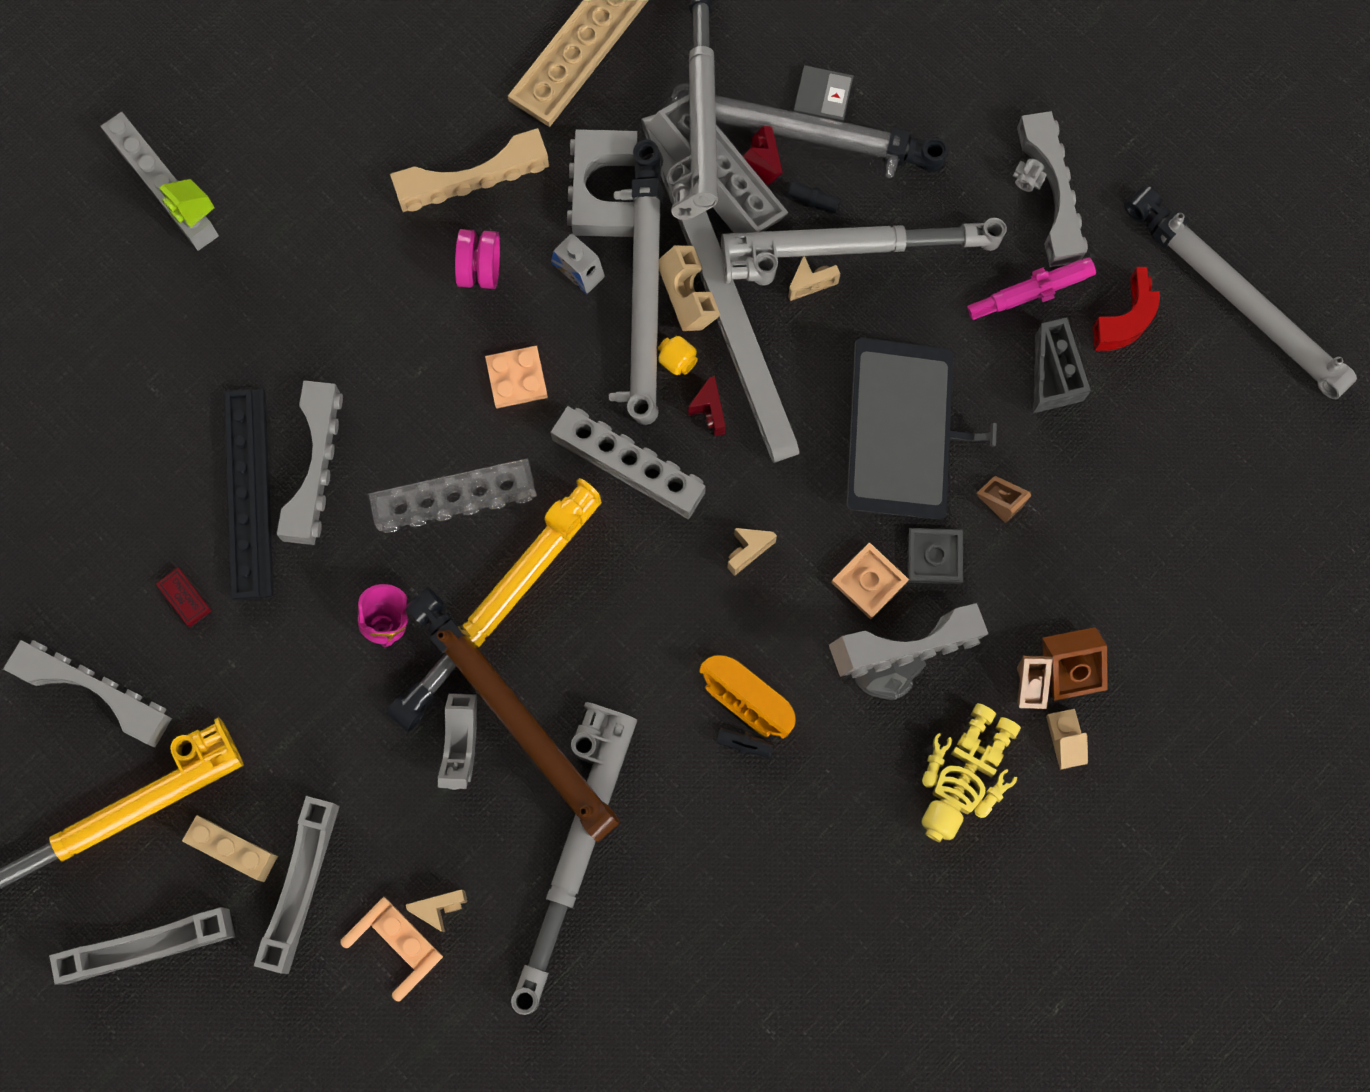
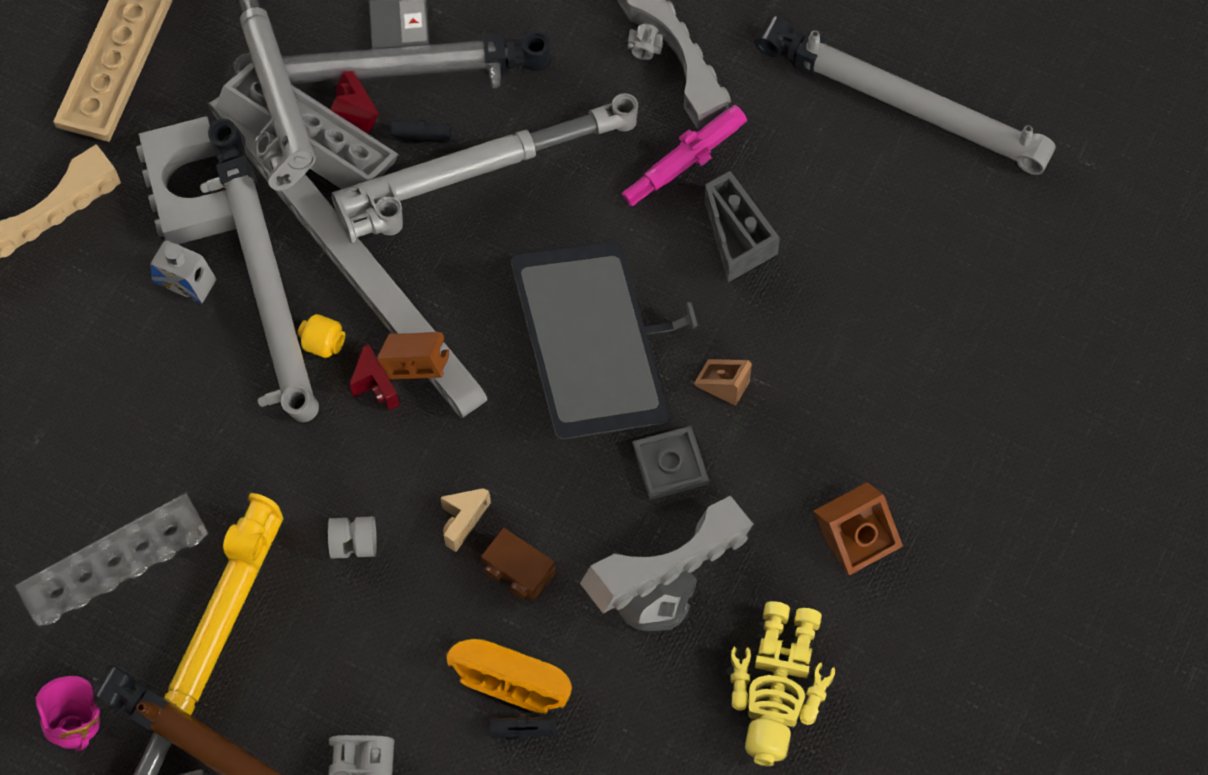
camera: 15 degrees left, 10 degrees down
(477, 259) = (68, 298): dark pink wheel -> none
(516, 377) = (148, 413): light nougat plate -> none
(652, 538) = (352, 537): none -> light grey wheel
(678, 272) = (295, 247): tan arch -> none
(681, 502) = (372, 490): light grey brick -> none
(749, 398) = (413, 355): none -> dark orange hinge
(781, 605) = (517, 565): none -> reddish brown brick
(807, 282) = (441, 219): tan slope -> none
(870, 580) = (607, 510): light nougat plate -> none
(1034, 681) = (819, 559): slope -> none
(1067, 739) = (877, 611): tan slope -> none
(1120, 331) = (795, 169): red arch -> none

